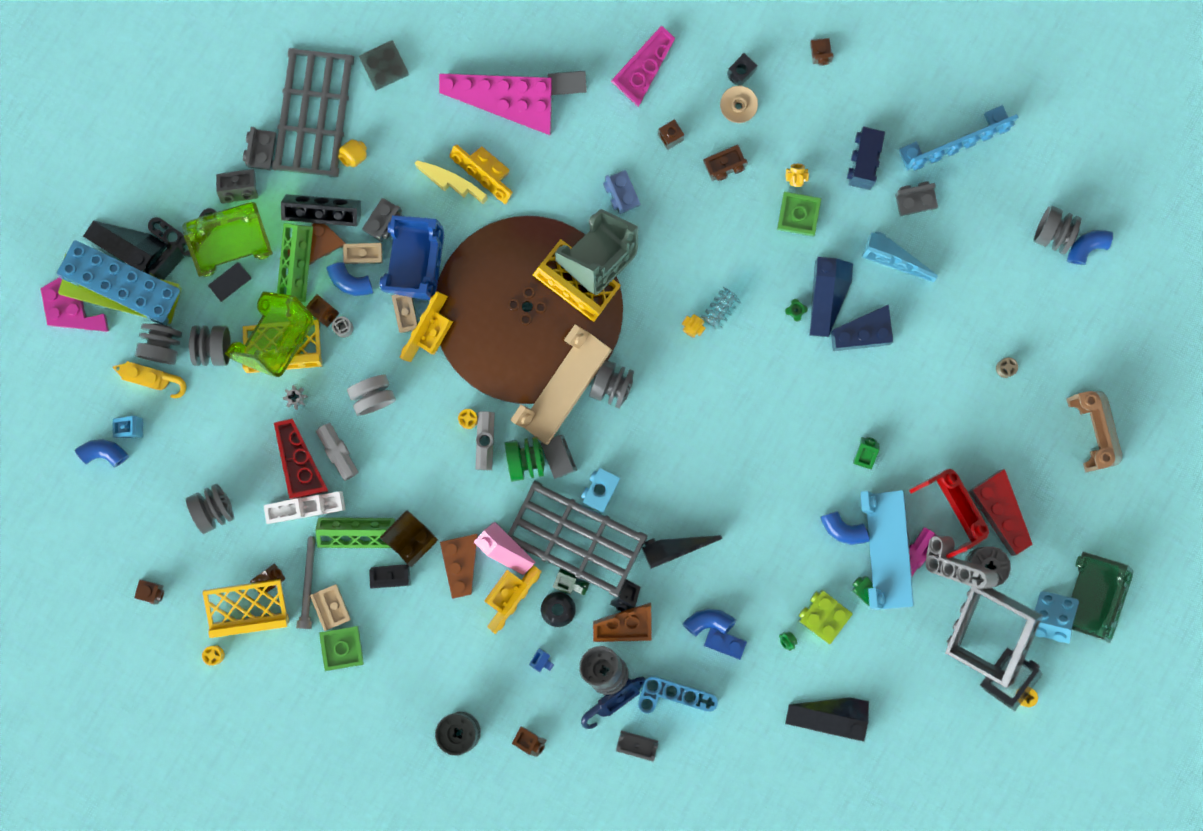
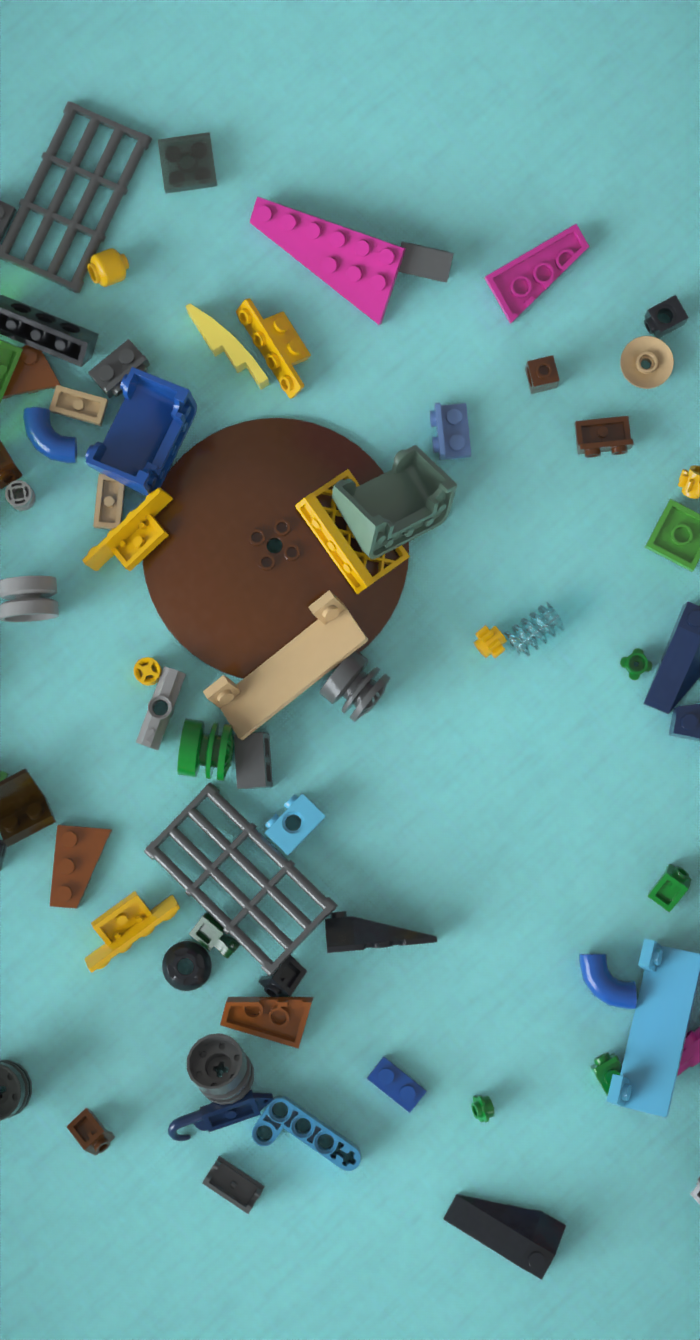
camera: 20 degrees right, 0 degrees up
(504, 549) = (139, 862): bright pink slope -> none
(541, 660) = (140, 1028): blue tile -> none
(709, 619) = (385, 1044): blue cylinder -> none
(824, 616) = (542, 1091): lime plate -> none

